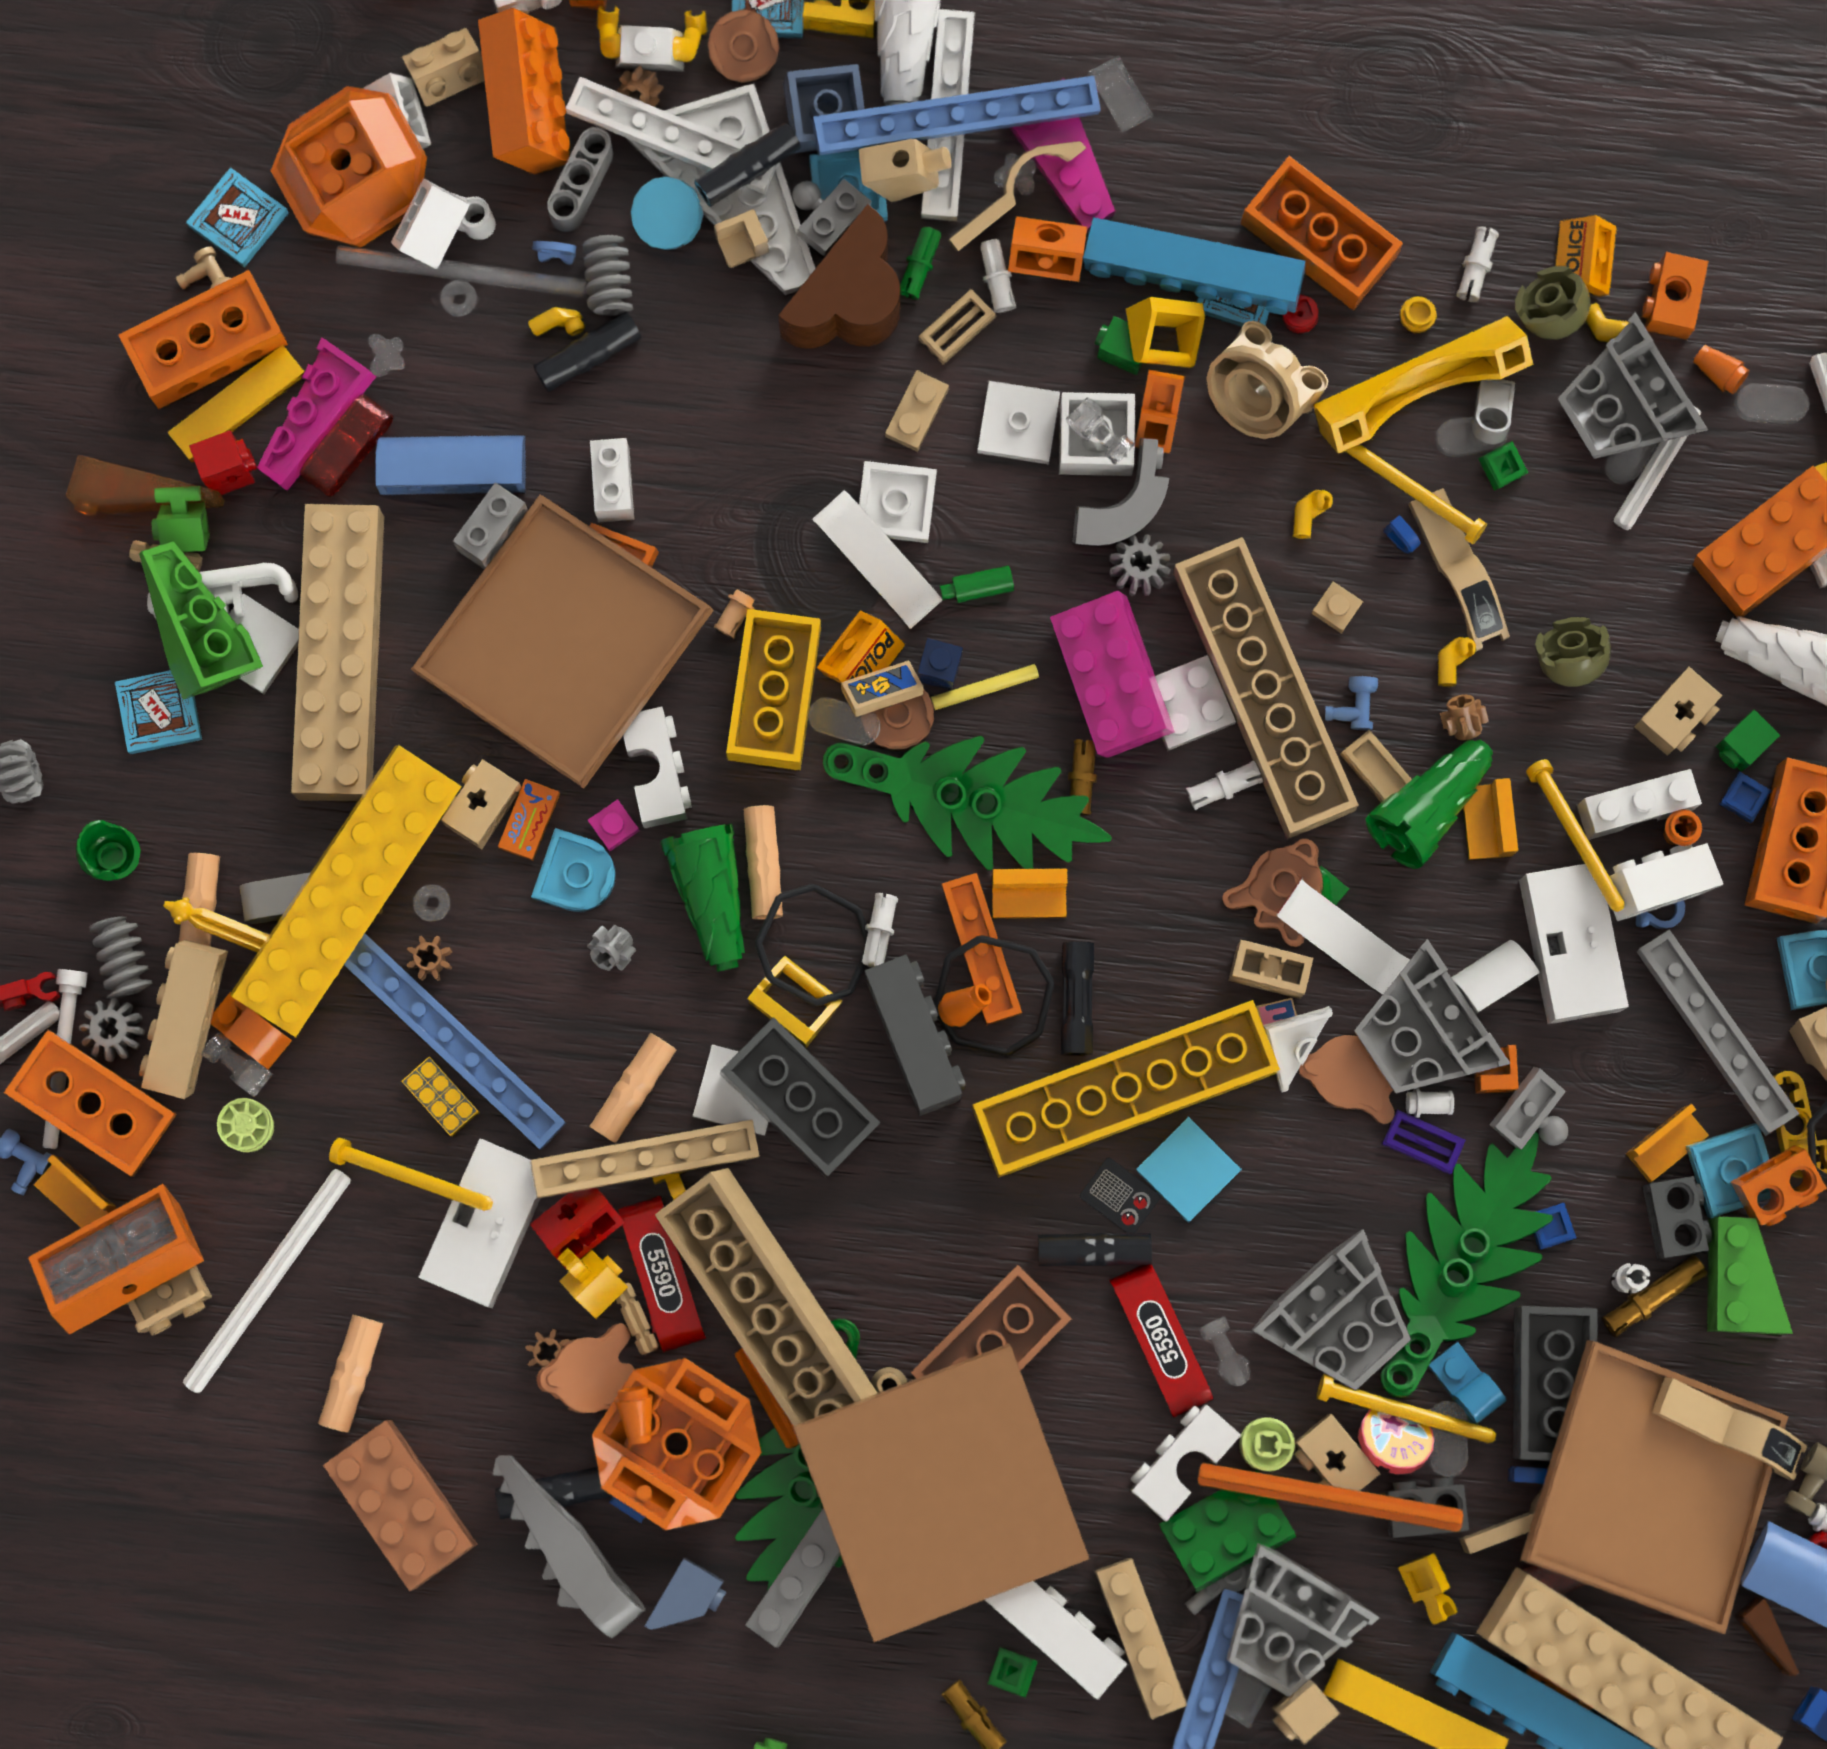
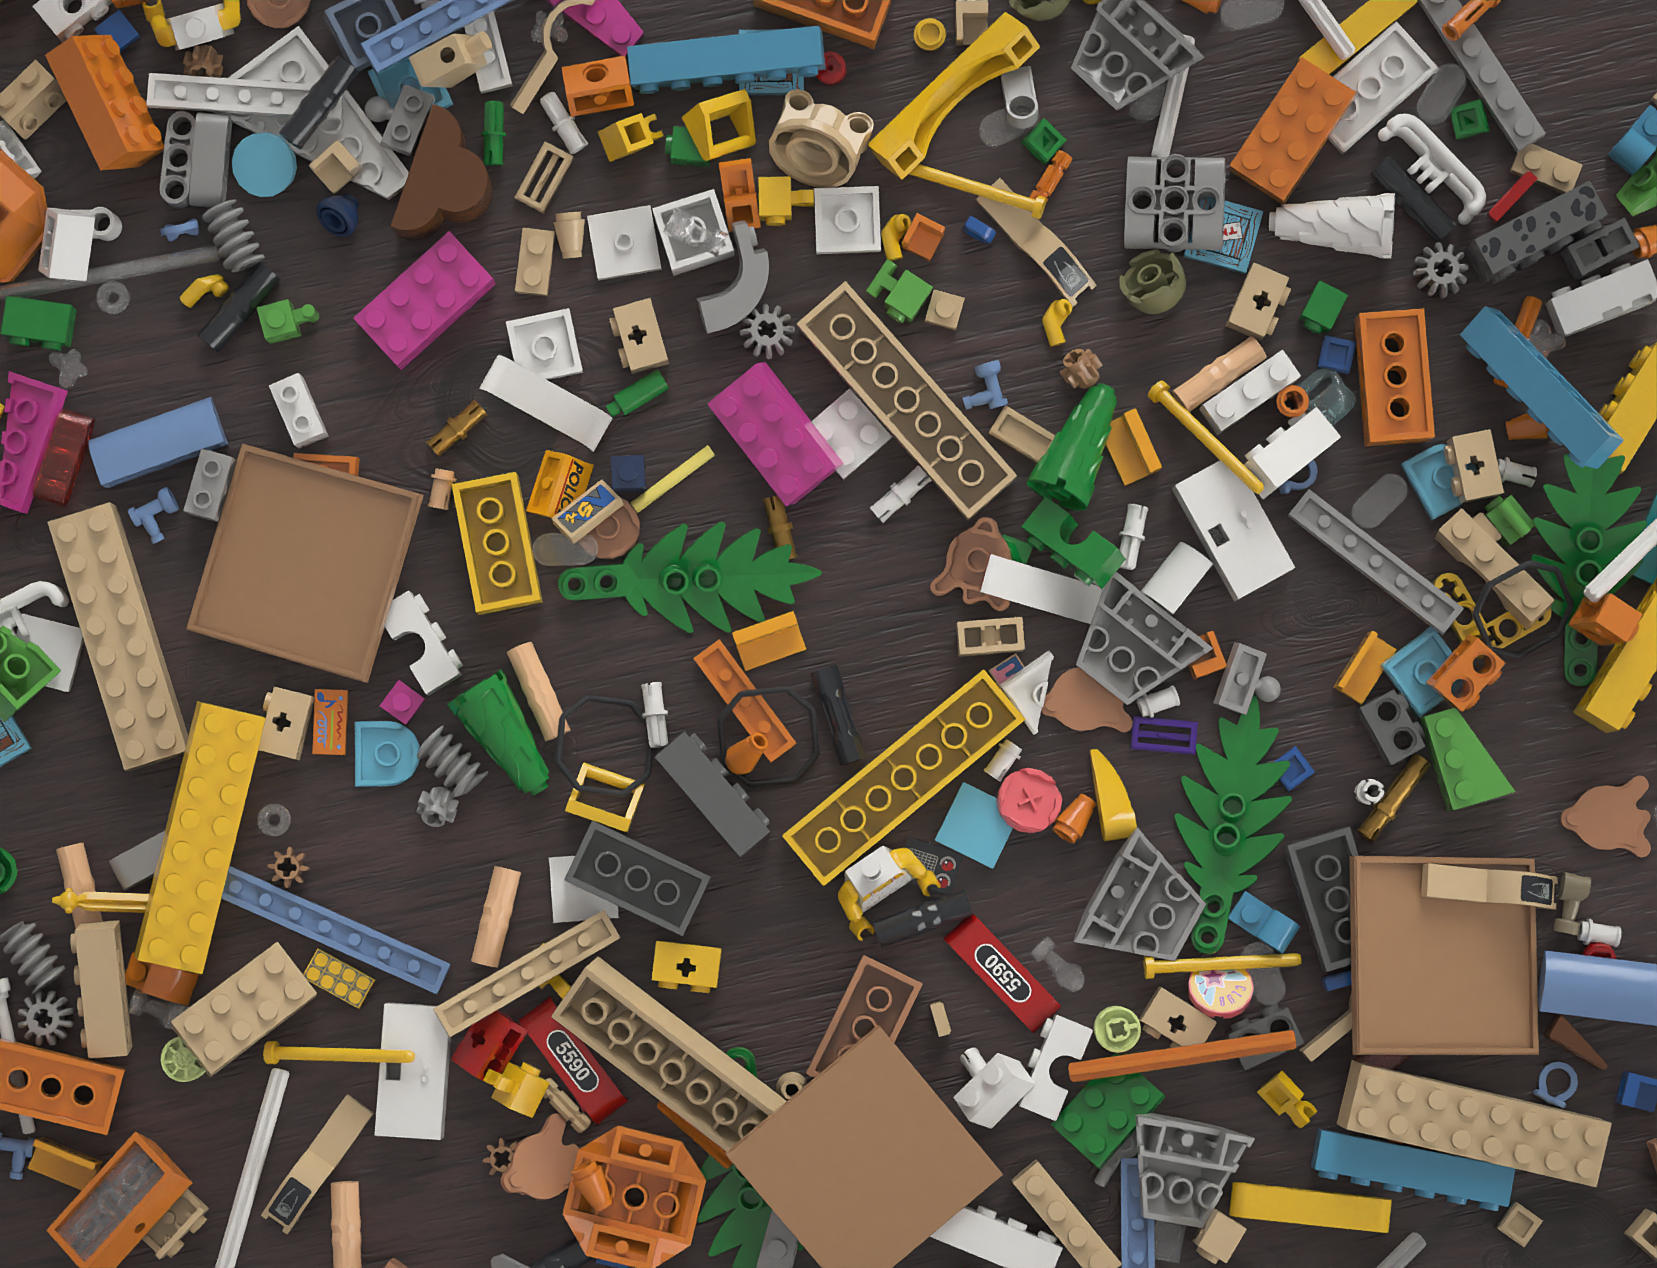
camera: 20 degrees left, 5 degrees up
(326, 1092) = (243, 1009): none -> tan brick
(346, 1288) = (317, 1163): none -> tan piece
(371, 297) = (38, 322): none -> green brick
(411, 533) = (144, 514): none -> medium blue piece
(565, 26) = (119, 29): none -> blue tile
(612, 188) = (210, 159): none -> light grey beam
(627, 380) = (281, 320): none -> bright green brick
(641, 906) = (450, 763): none -> light grey piece
(726, 291) = (338, 214): none -> dark blue brick
(773, 555) = (456, 428): none -> pearl gold pin
(786, 410) = (425, 300): none -> dark pink brick
(808, 1193) = (670, 954): none -> yellow brick
(965, 391) = (570, 231): none -> tan cone
(1004, 503) = (639, 317): none -> tan brick
(1058, 1188) = (876, 879): none -> torso
(1061, 311) = (628, 136): none -> yellow brick
(1076, 1367) = (940, 1018): none -> tan tile
(1109, 1460) = (993, 1087): none -> white brick
(1198, 430) = (777, 199): none -> yellow brick
(1239, 1108) = (1003, 760): none -> white pin
(1253, 1161) = (1029, 800): none -> coral tile
(1265, 477) = (847, 220): none -> white plate
(1295, 1199) = (1074, 819): none -> orange cone
(1301, 576) = (905, 295): none -> bright green brick
(1340, 522) = (923, 237): none -> orange panel
(1343, 1197) = (1113, 805): none -> yellow piece
(1409, 922) = (1092, 559): none -> green arch
(1459, 915) = (1132, 535): none -> white axle
(1466, 313) = (970, 20): none -> tan panel
(1501, 503) = (1052, 175): none -> orange axle
(1596, 544) = (1143, 181): none -> light grey connector
(1613, 773) = (1219, 374): none -> light nougat axle
(1664, 628) = (1239, 236): none -> medium azure tile
(1727, 844) = (1334, 400): none -> clear light blue piece
(1731, 1693) = (1559, 1100): none -> medium blue piece
(1741, 969) = (1379, 501): none -> clear tile

